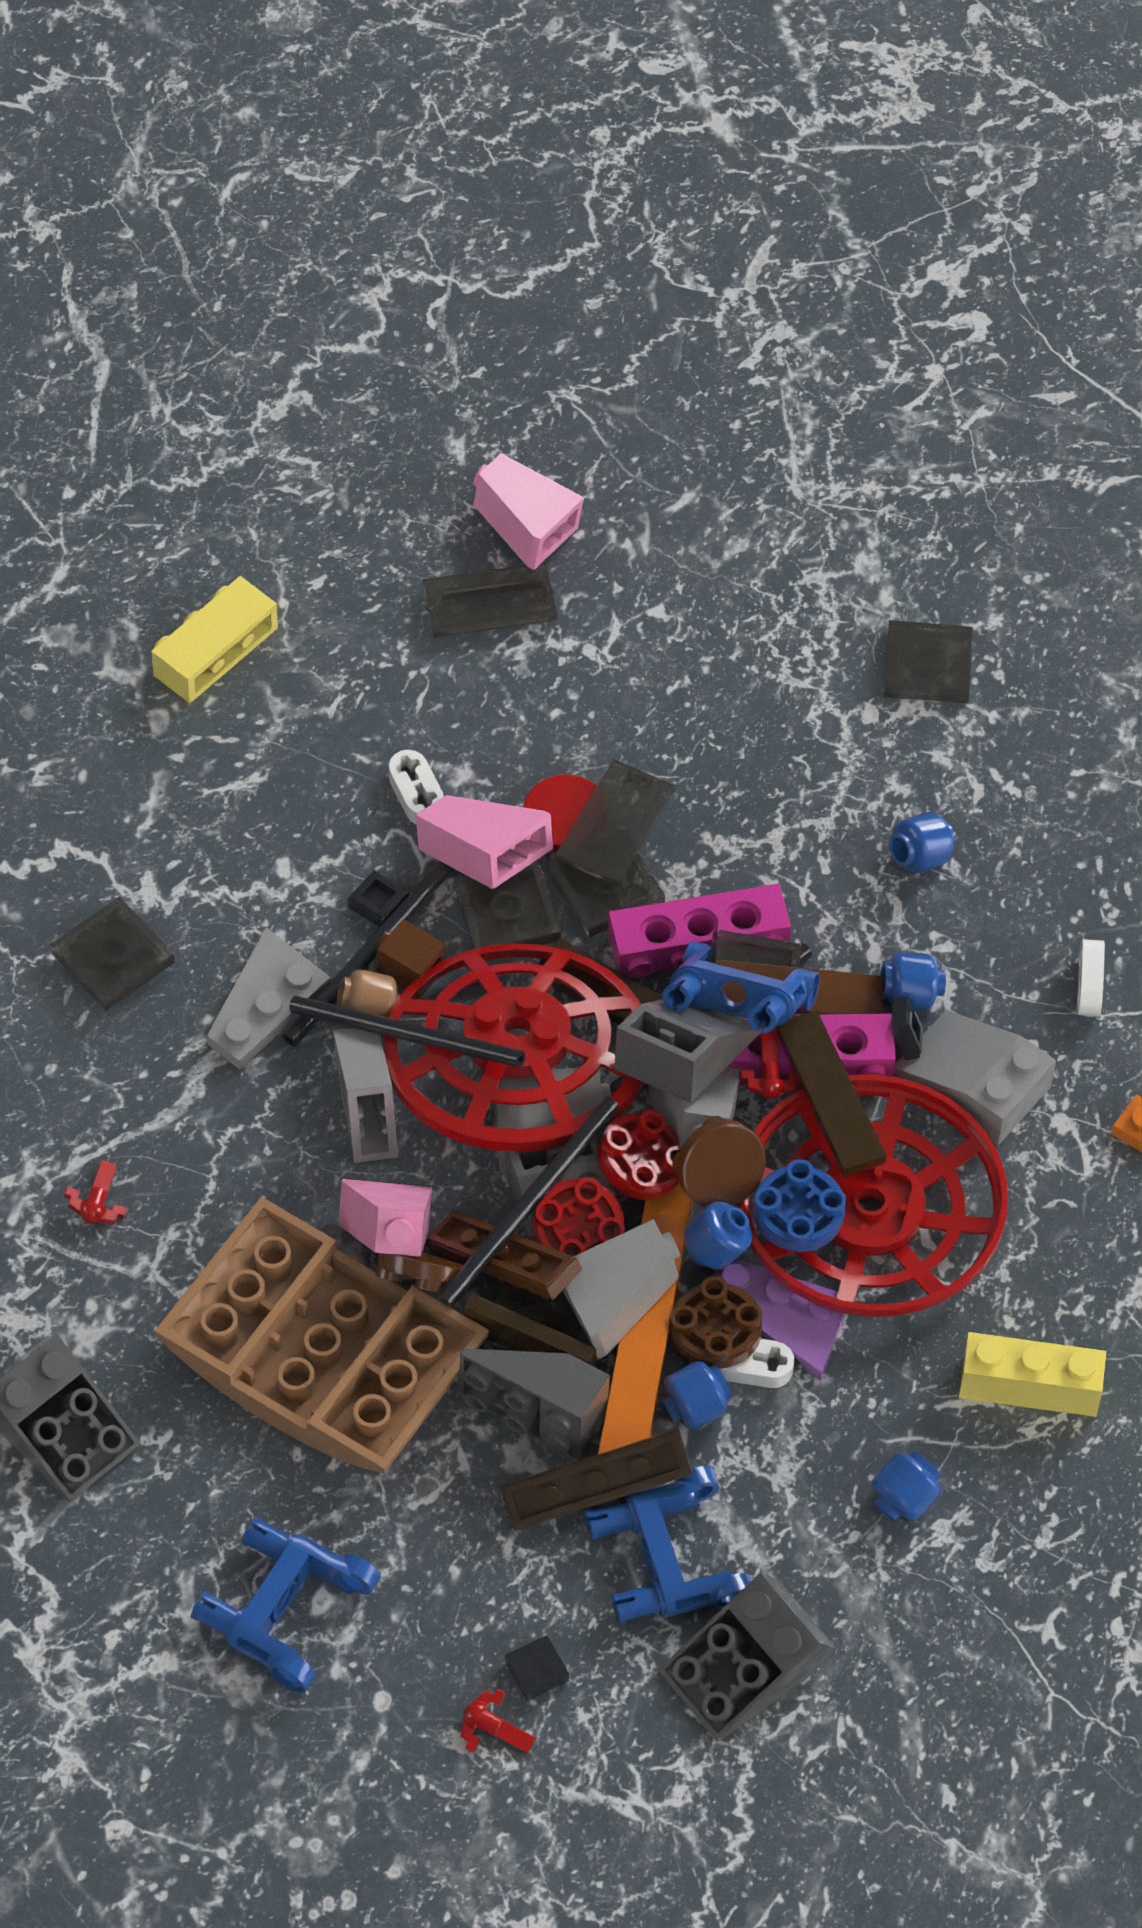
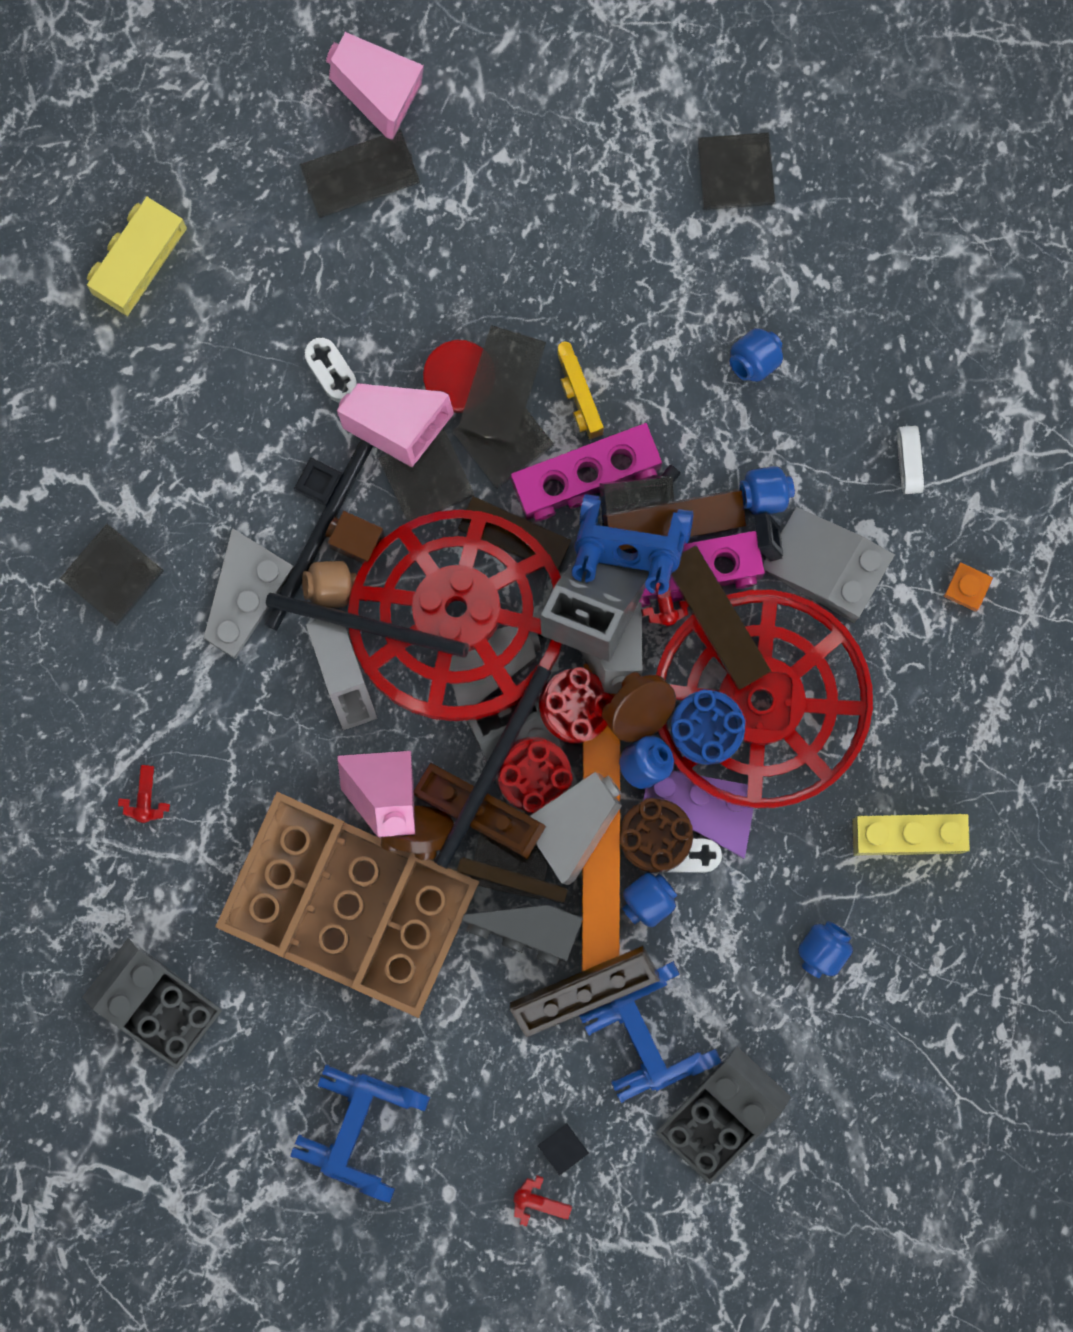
camera: 10 degrees left, 25 degrees up
(702, 842) = (577, 388): none -> yellow hinge

